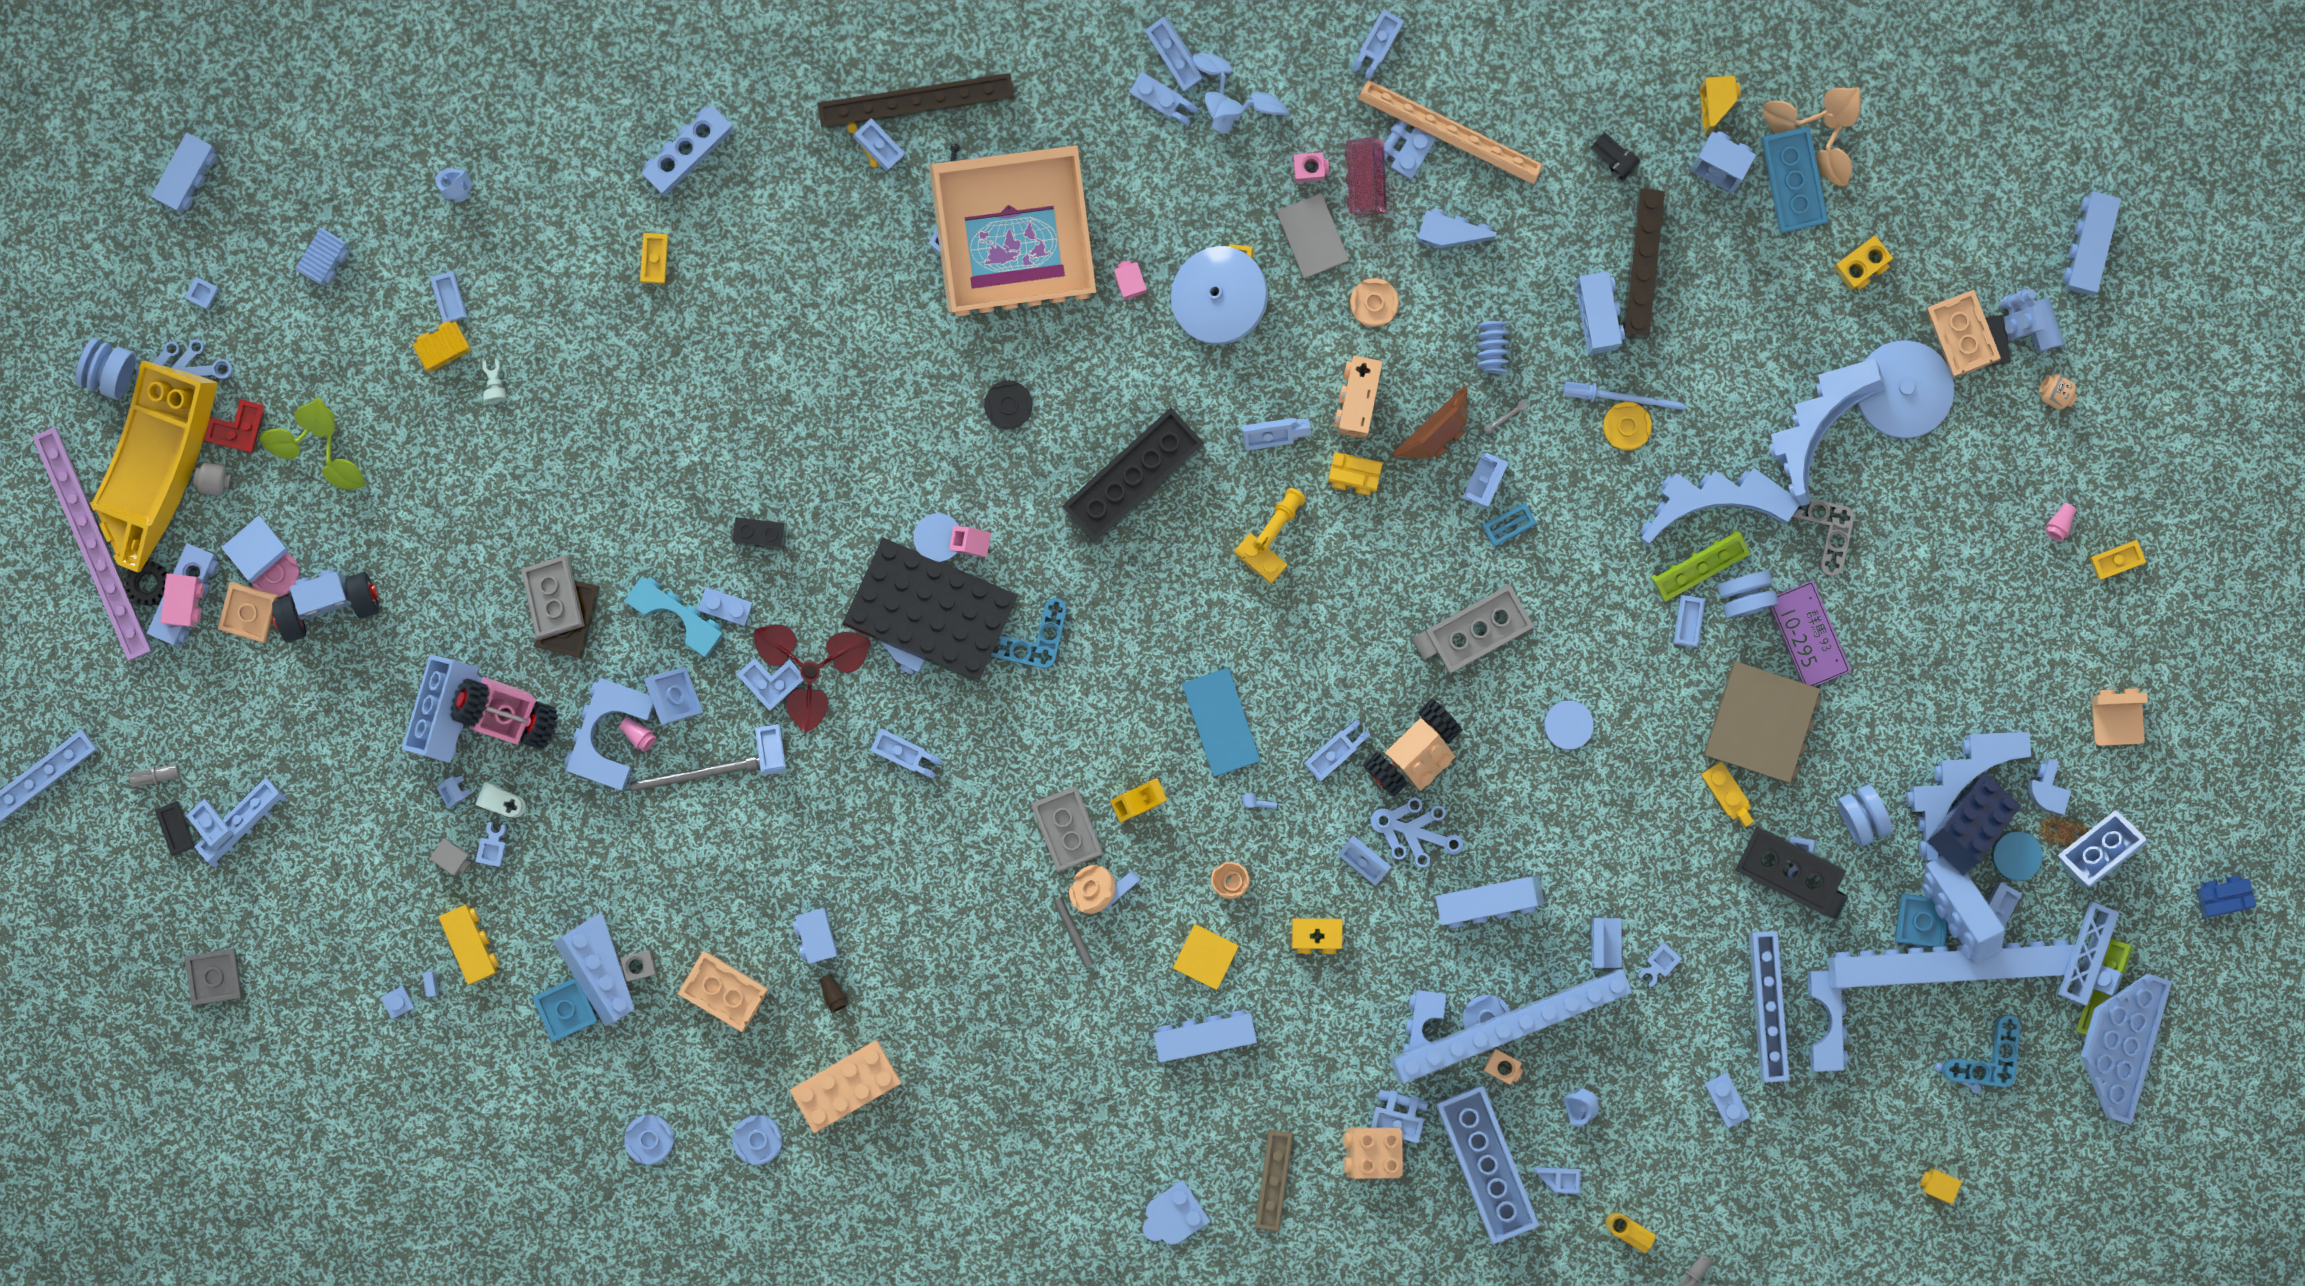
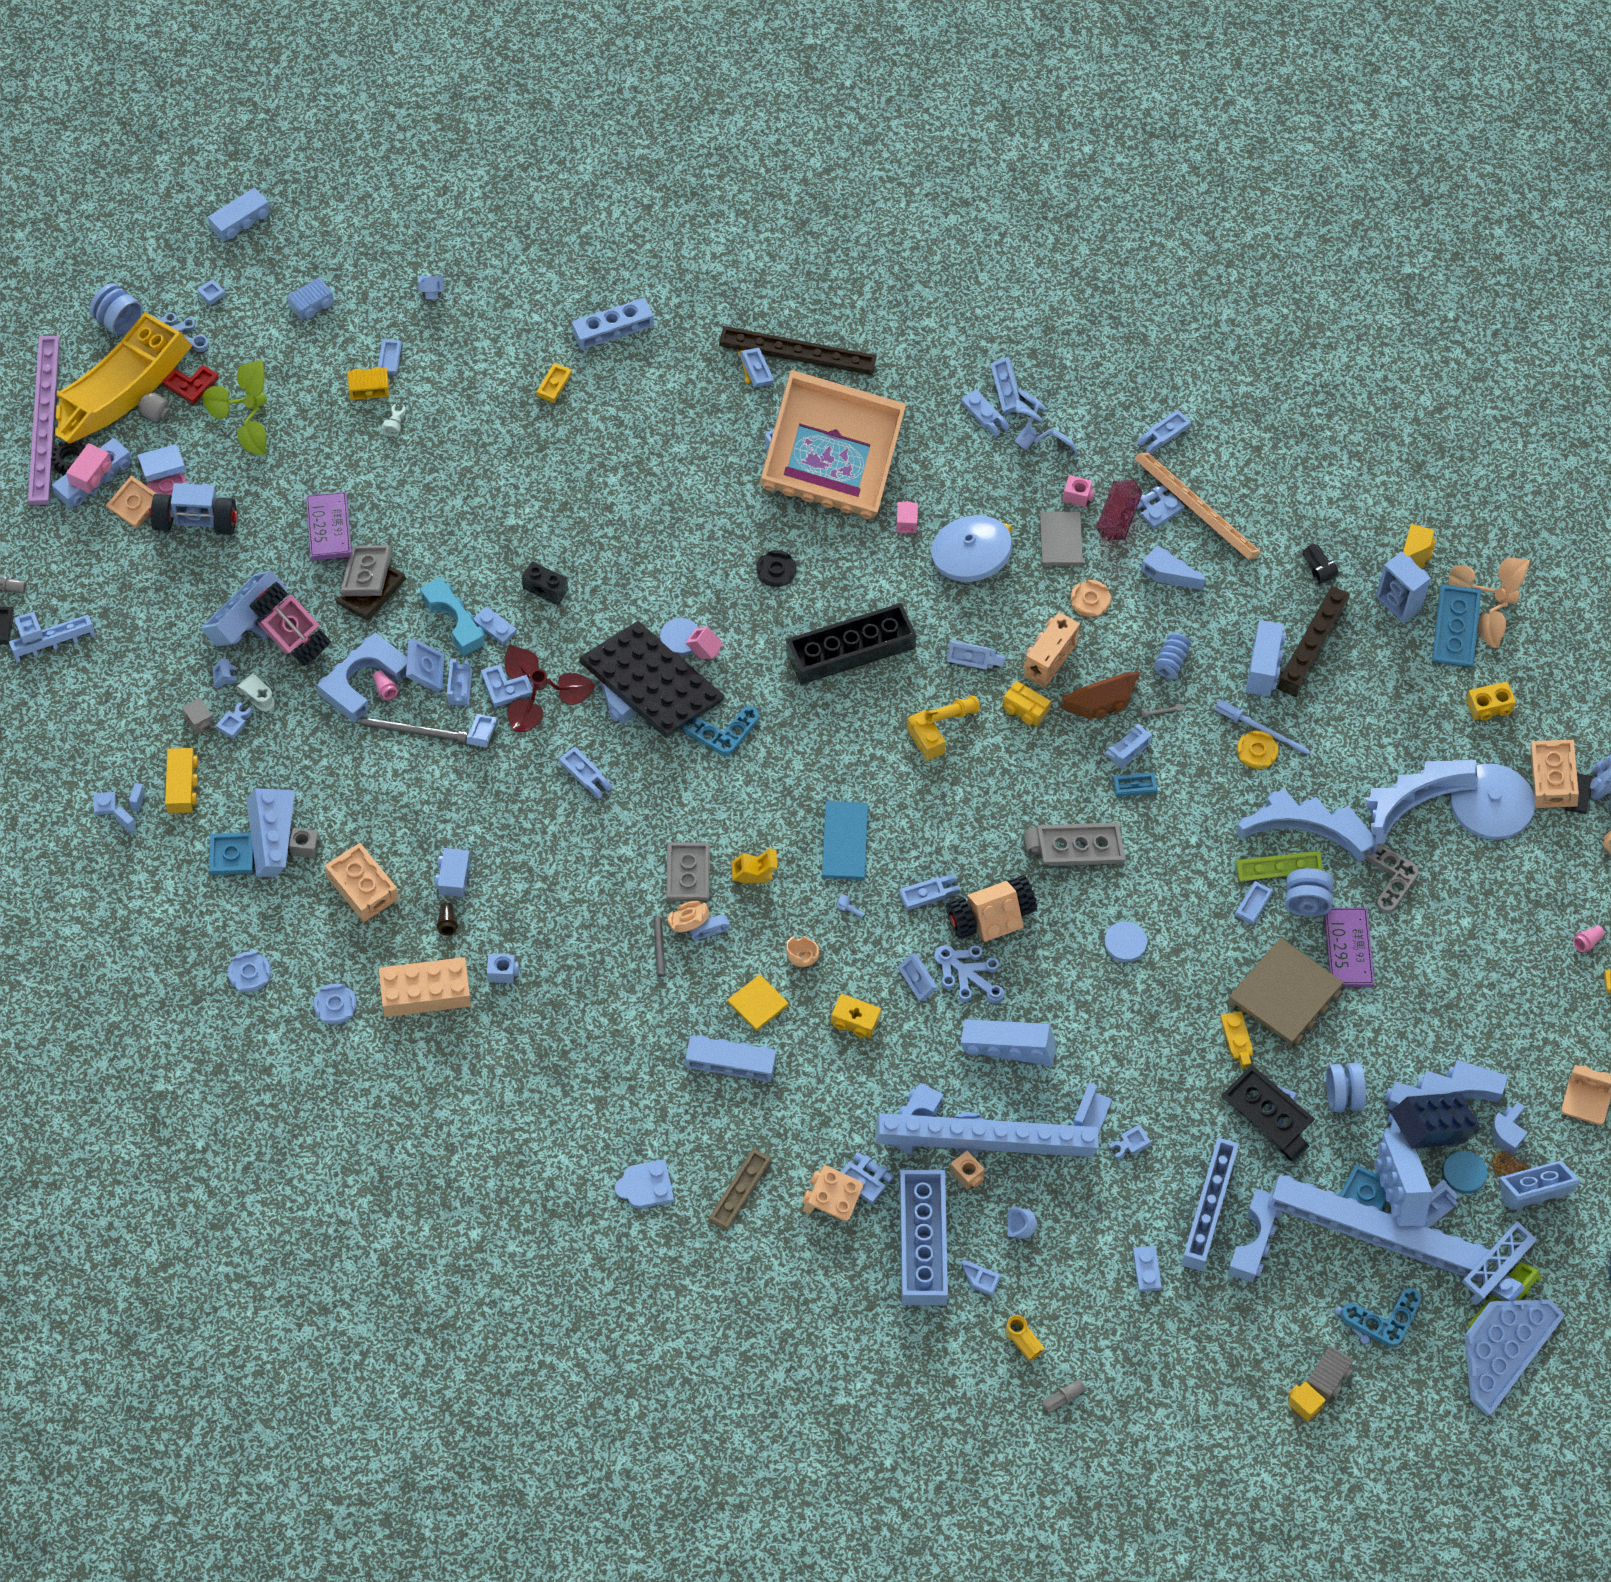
camera: 20 degrees right, 25 degrees down
(431, 1016) = (125, 819): none -> light blue tile
(483, 555) = (328, 526): none -> medium lavender tile
(719, 698) = (459, 683): none -> light blue hinge
(907, 1030) = (497, 961): none -> light blue brick
(1954, 1145) = (1330, 1373): none -> light grey brick

